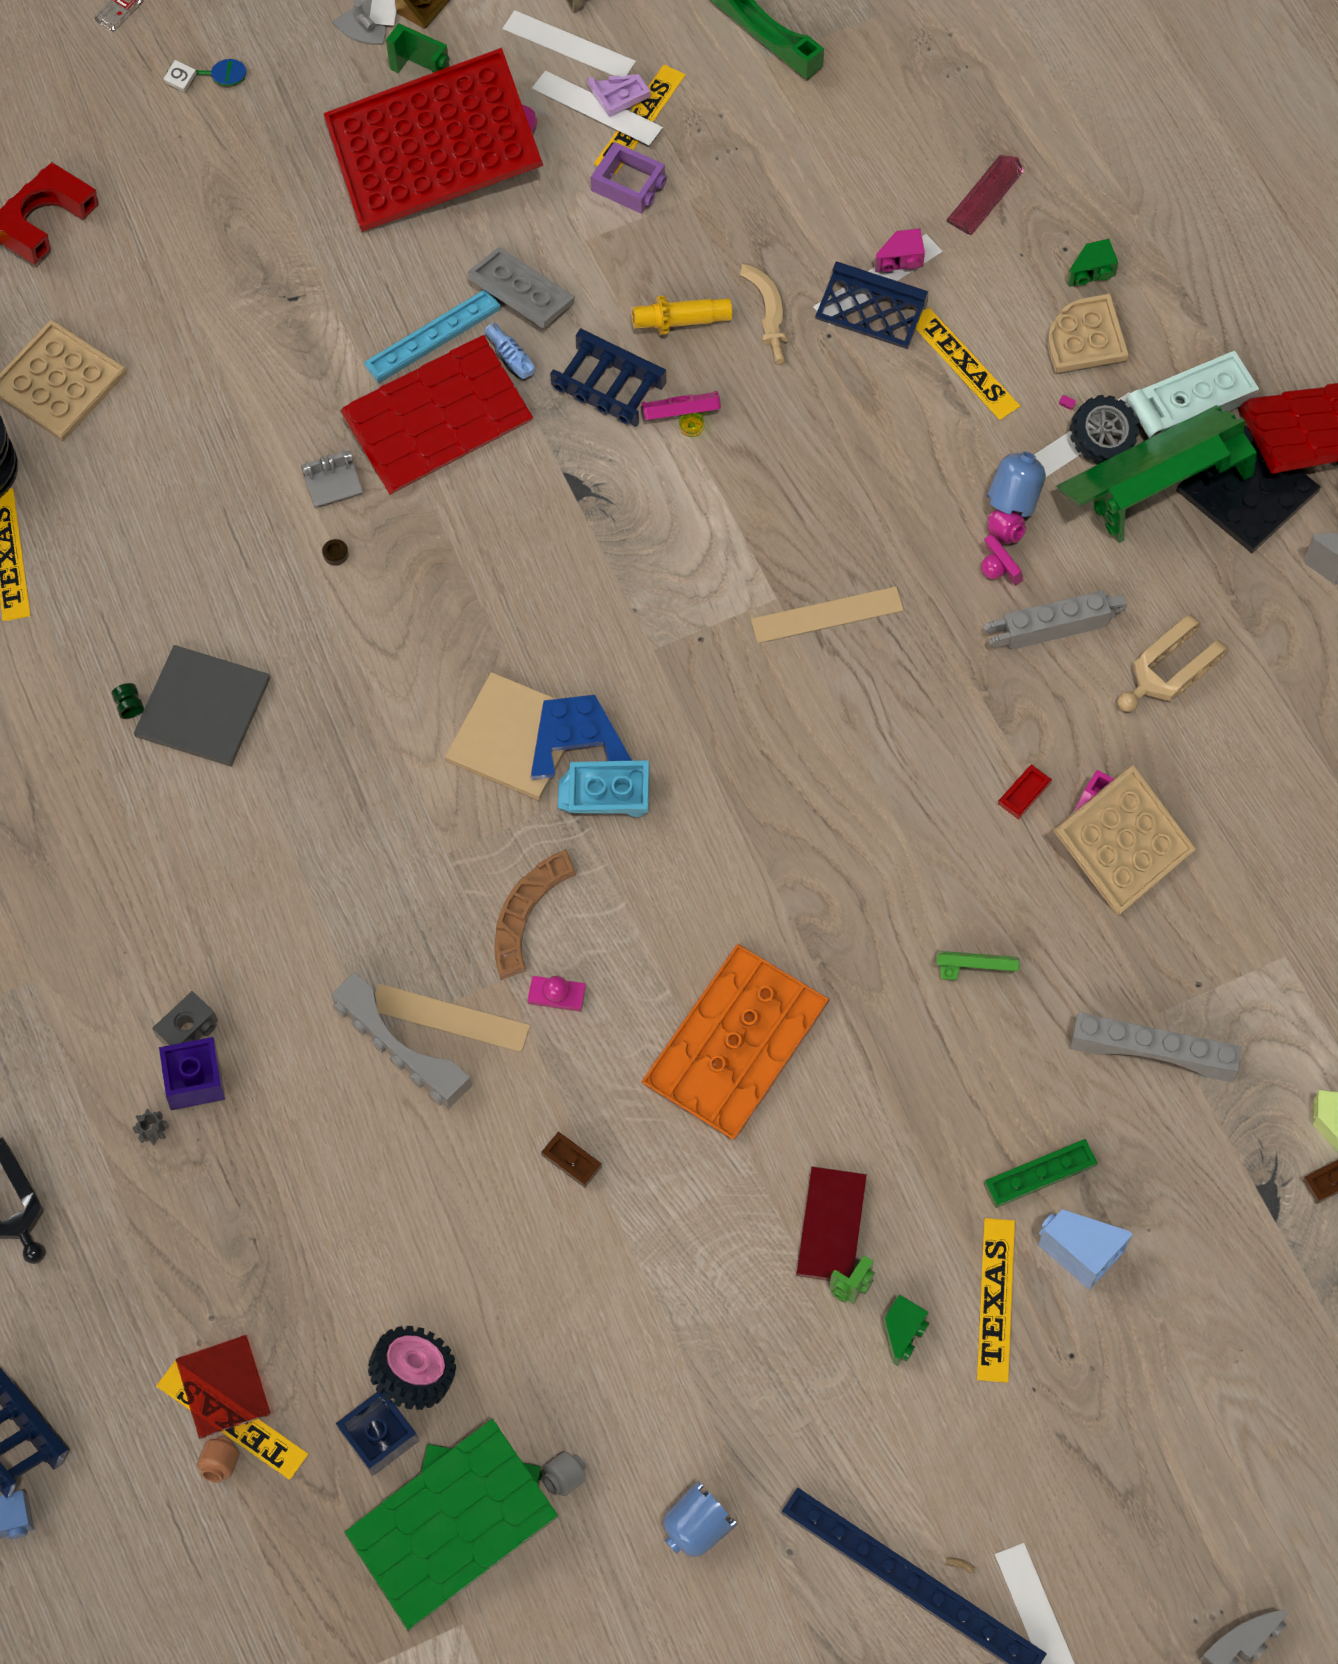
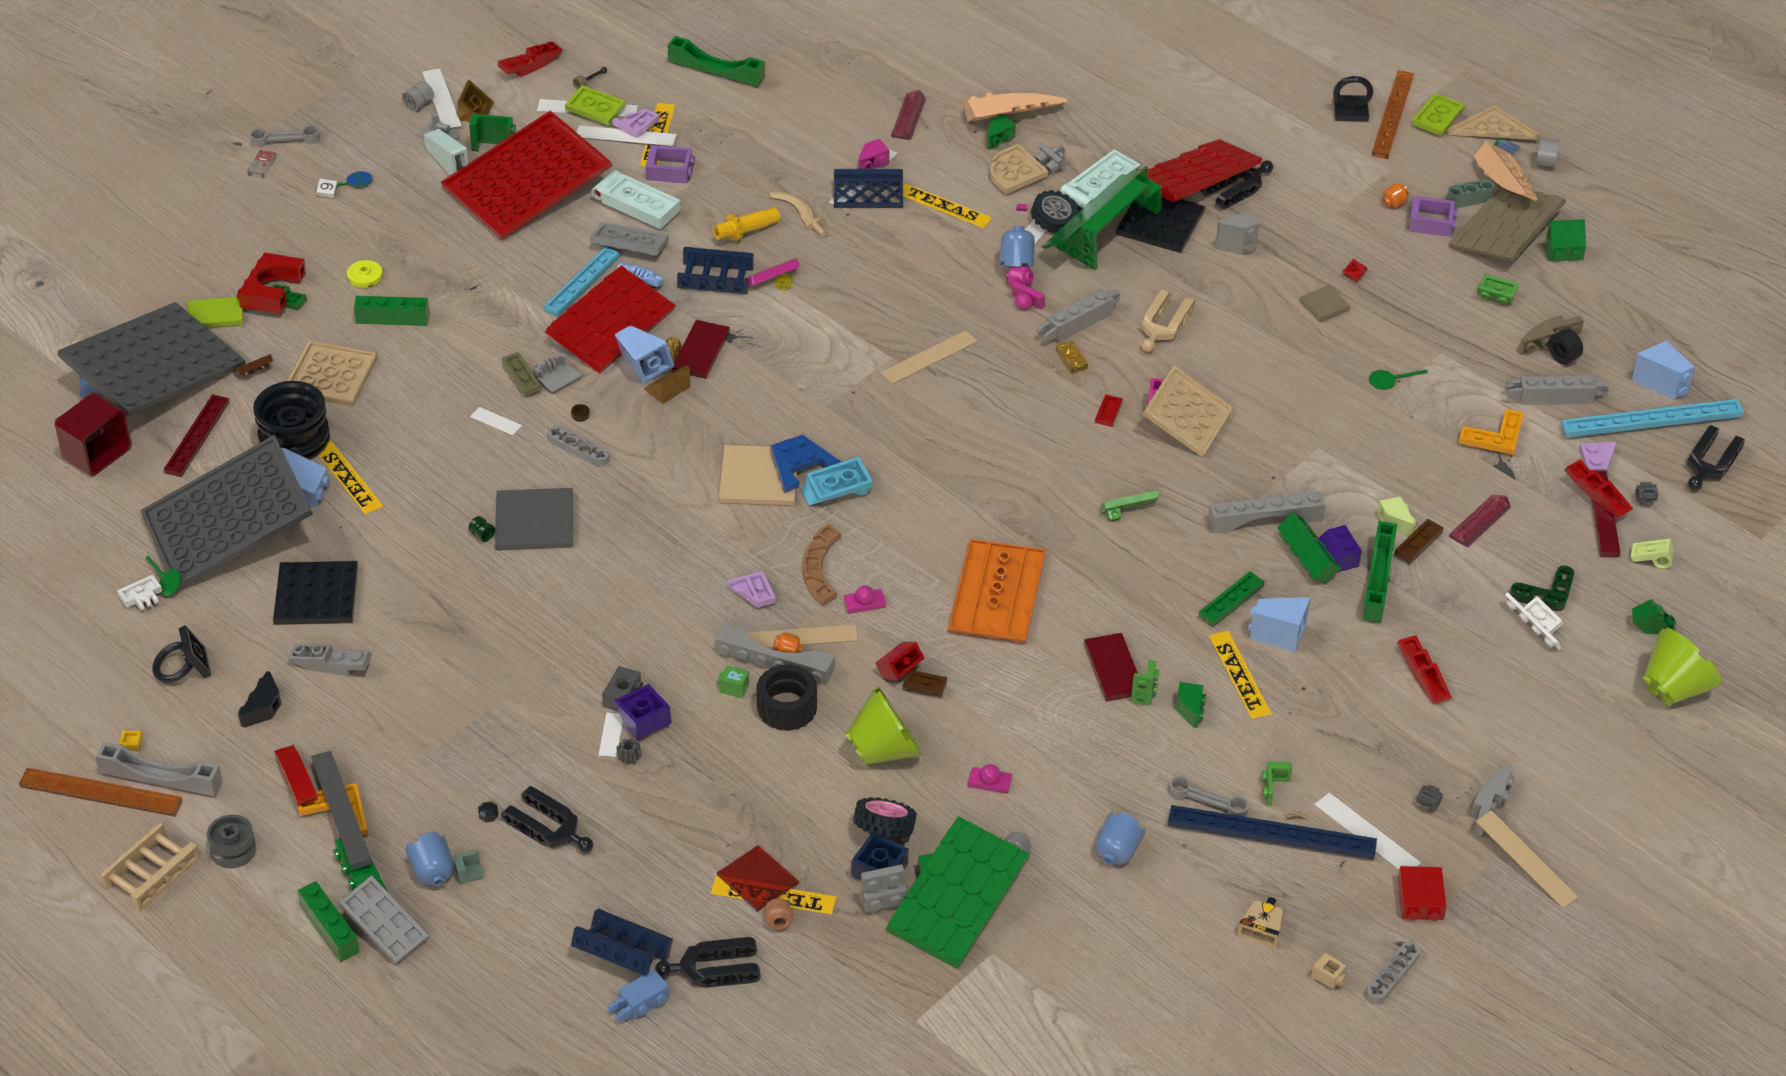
camera: 25 degrees left, 20 degrees down
(61, 243) = (294, 299): none -> green slope
(74, 1492) = (717, 975): none -> black piece
(143, 1089) = (611, 735): none -> white sticker
(167, 241) = (364, 273): none -> neon yellow plate
(170, 307) = (391, 310): none -> green brick
(226, 527) = (496, 421): none -> white sticker
(287, 465) = (521, 374): none -> olive plate
(306, 607) = (559, 436): none -> light grey beam
(329, 1065) = (733, 681): none -> bright green brick
(350, 64) = (446, 151): none -> light aqua slope
(358, 1482) = (882, 888): none -> light grey plate
(375, 1089) = (786, 680): none -> black tyre
(421, 1033) = (787, 643): none -> orange head
(423, 922) = (753, 589): none -> lavender wing
(444, 493) = (644, 353): none -> light blue slope
(465, 547) = (670, 384): none -> pearl gold slope
(473, 1231) = (880, 732): none -> lime cone
(493, 491) = (674, 346): none -> clear yellow cone
(533, 500) = (702, 348): none -> dark red tile
(551, 1114) = (899, 660): none -> red brick
(559, 224) = (637, 199): none -> light aqua hinge
(577, 46) = (595, 105): none -> lime plate
(584, 1347) = (990, 779): none -> dark pink tile
(855, 1491) = (1207, 797): none -> light grey piece
(966, 1486) = (1275, 772): none -> bright green bracket
(1015, 685) = (1071, 356): none -> clear yellow plate
(1111, 221) = (1006, 104): none -> light nougat wedge
(1151, 1614) = (1429, 797): none -> dark grey gear
(1154, 329) = (1052, 155): none -> light grey hips
(1183, 1132) = (1308, 548): none -> green brick
(1220, 1148) = (1342, 547): none -> dark purple slope
(1248, 1394) = (1424, 670): none -> red slope
(1263, 1209) = (1379, 571): none -> green arch

